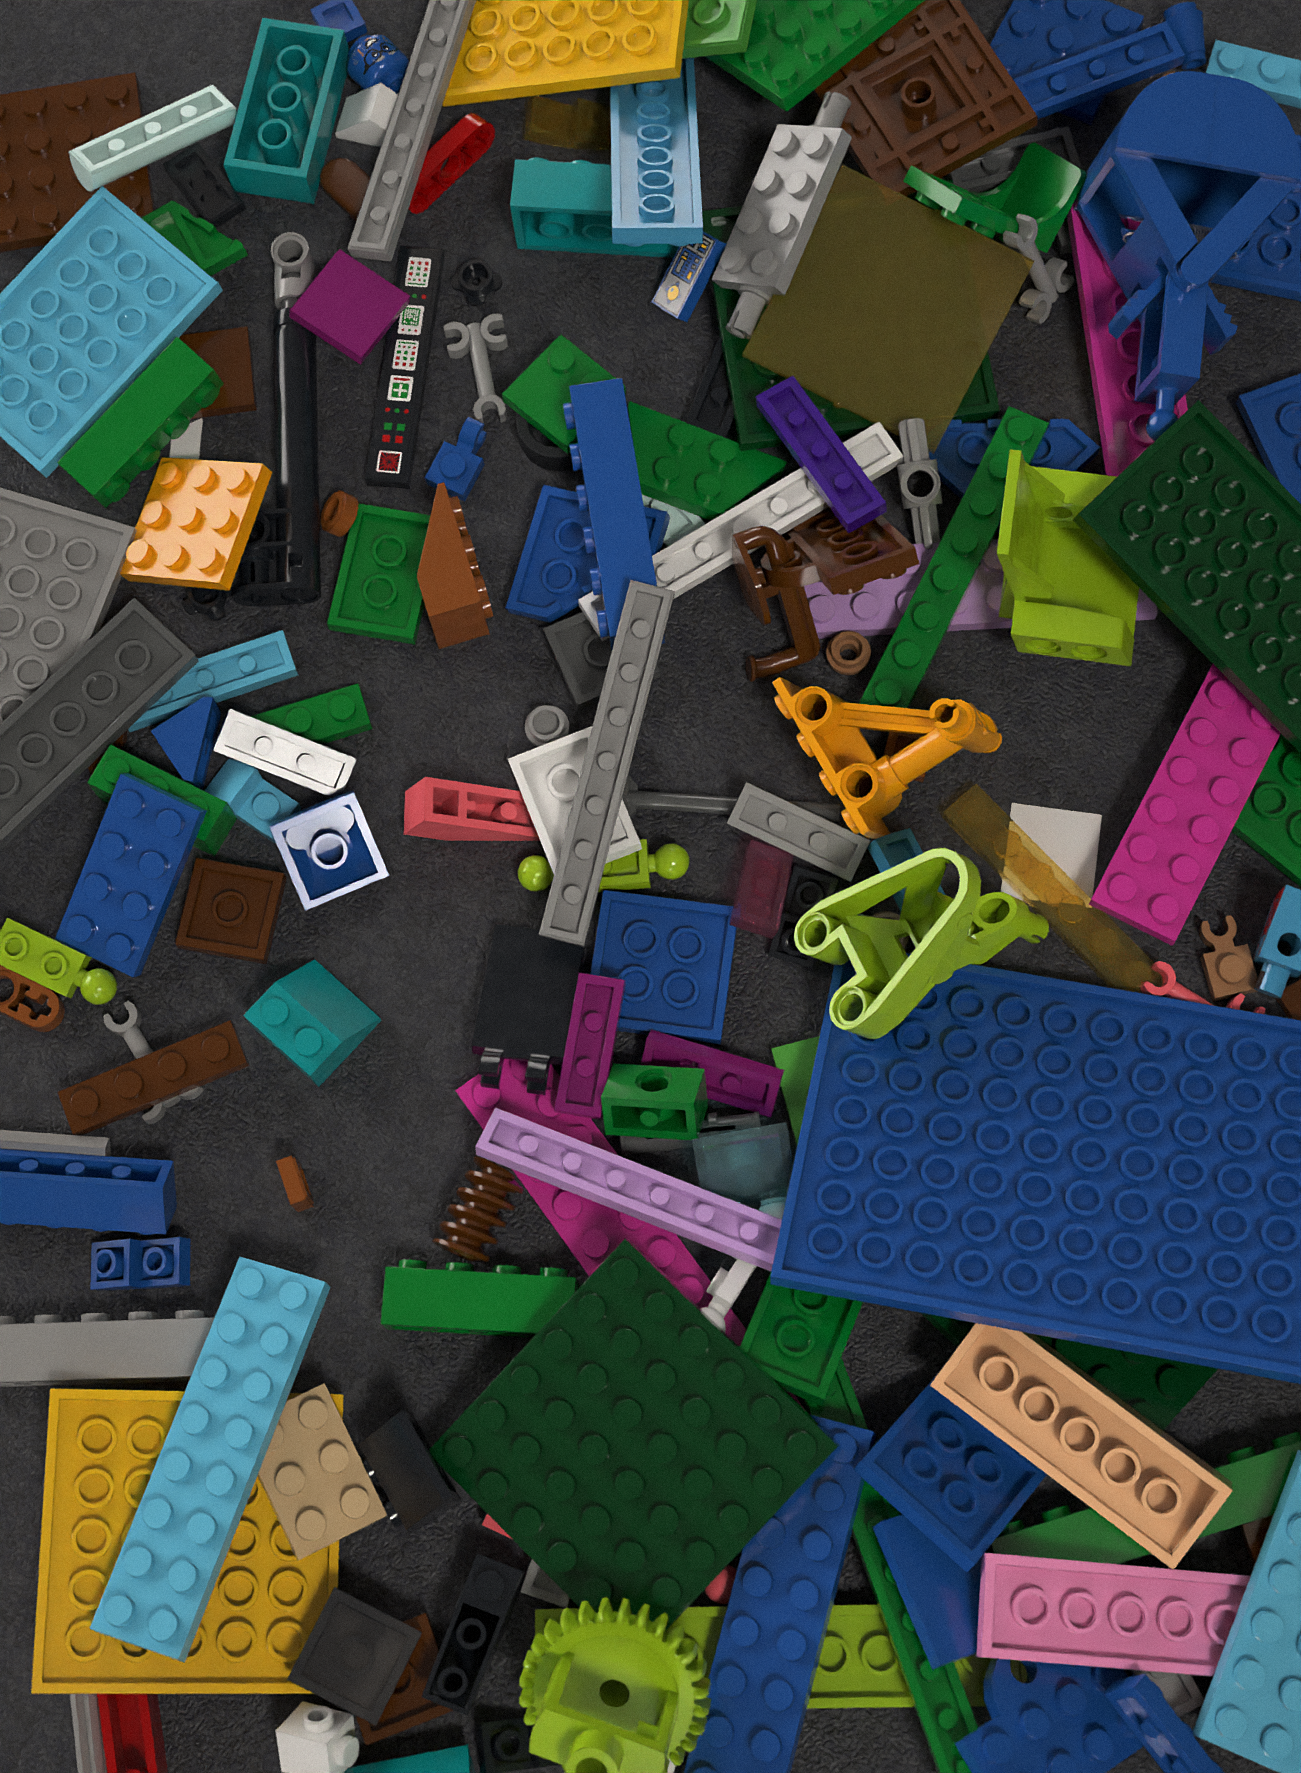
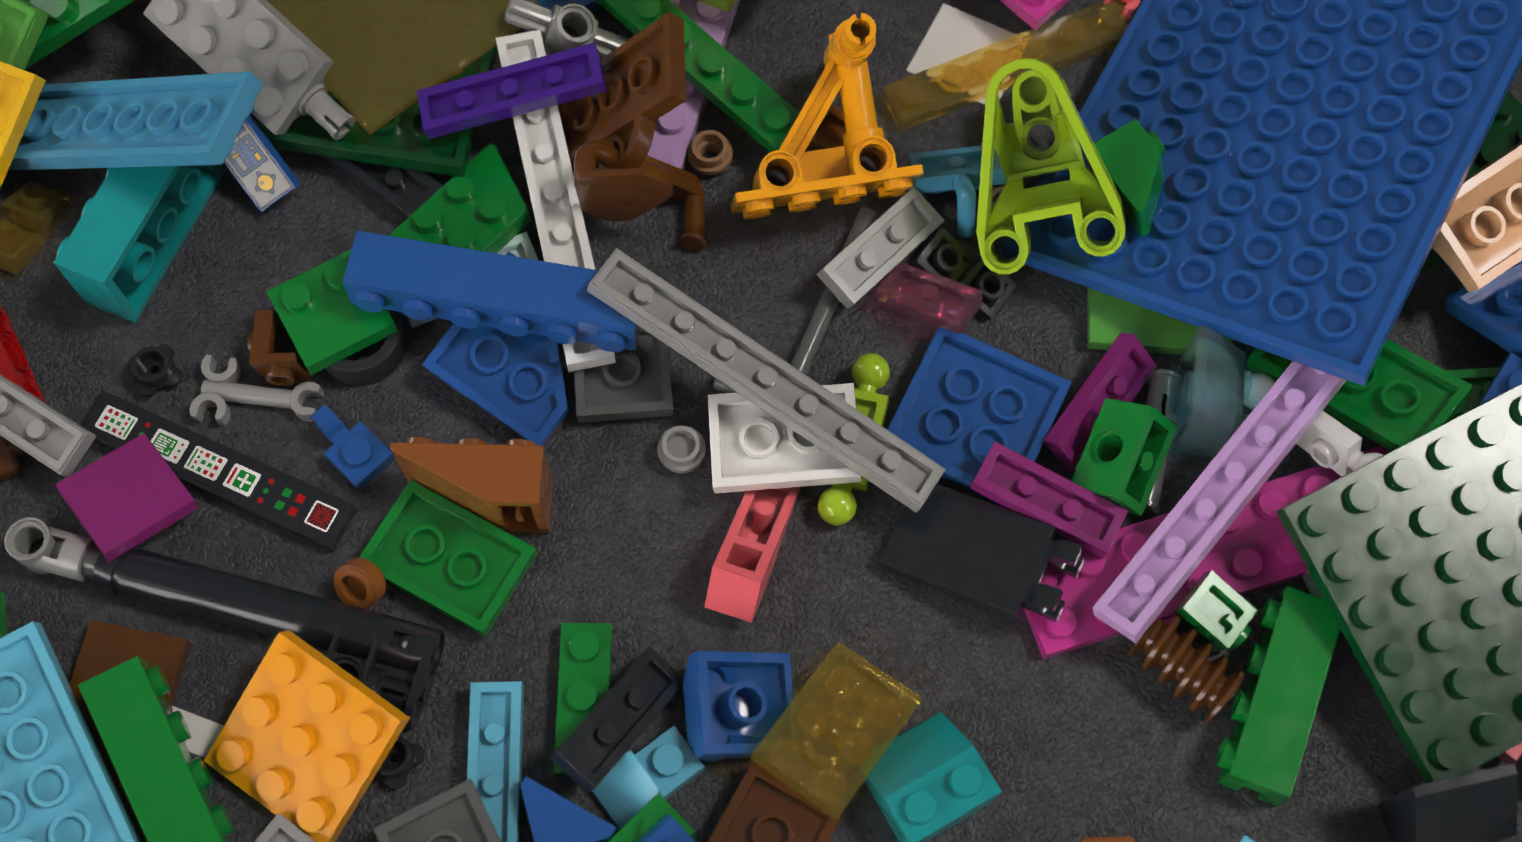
camera: 80 degrees left, 5 degrees down
(330, 931) = (836, 730): none -> clear yellow plate
(516, 358) = (270, 351): none -> reddish brown bracket
(533, 1223) = (1217, 612): none -> bracket
(936, 1026) = (1136, 169): none -> green slope

